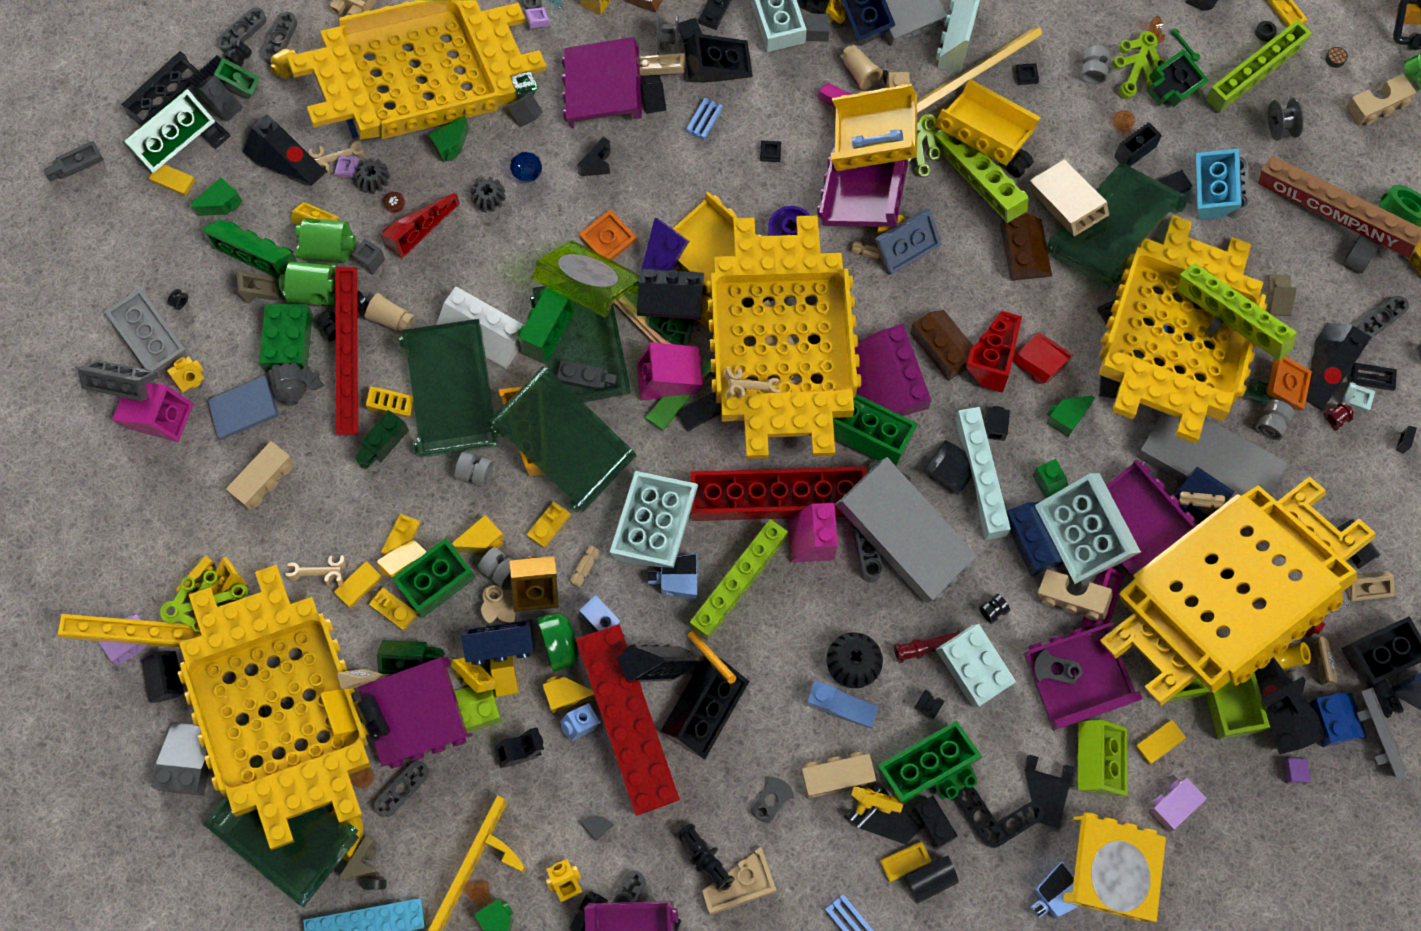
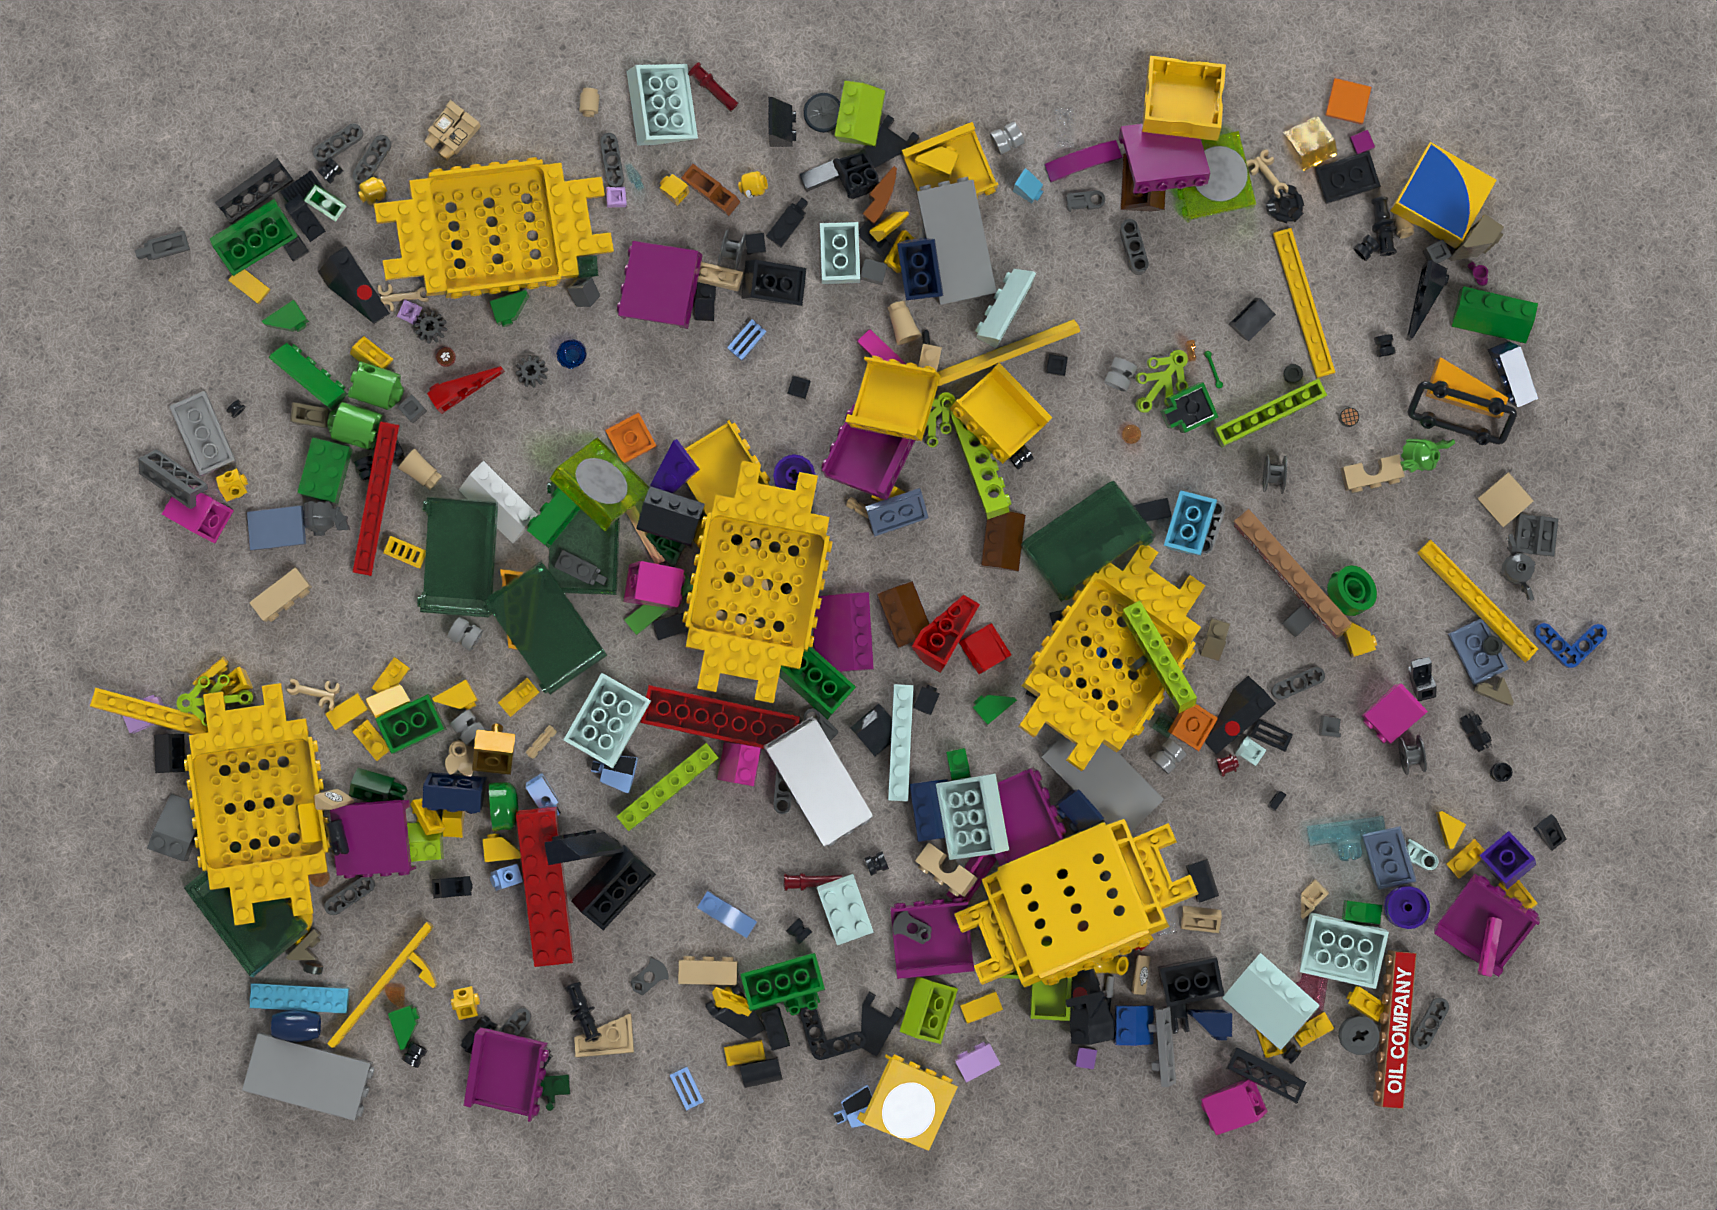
camera: 10 degrees right, 15 degrees up
(381, 439) = (390, 587): dark green hinge -> none
(594, 161) = (632, 362): black slope -> none
(597, 826) = (502, 964): dark grey tile -> none
(710, 655) = (626, 851): light orange bar -> none
(738, 386) = (703, 624): tan bar -> none
(854, 673) = (751, 868): black wheel -> none
(860, 141) = (878, 410): medium blue bar -> none
(1069, 197) = (1051, 506): brick -> none
(1138, 145) = (1132, 467): black brick -> none
(1202, 500) = (1075, 817): tan axle -> none

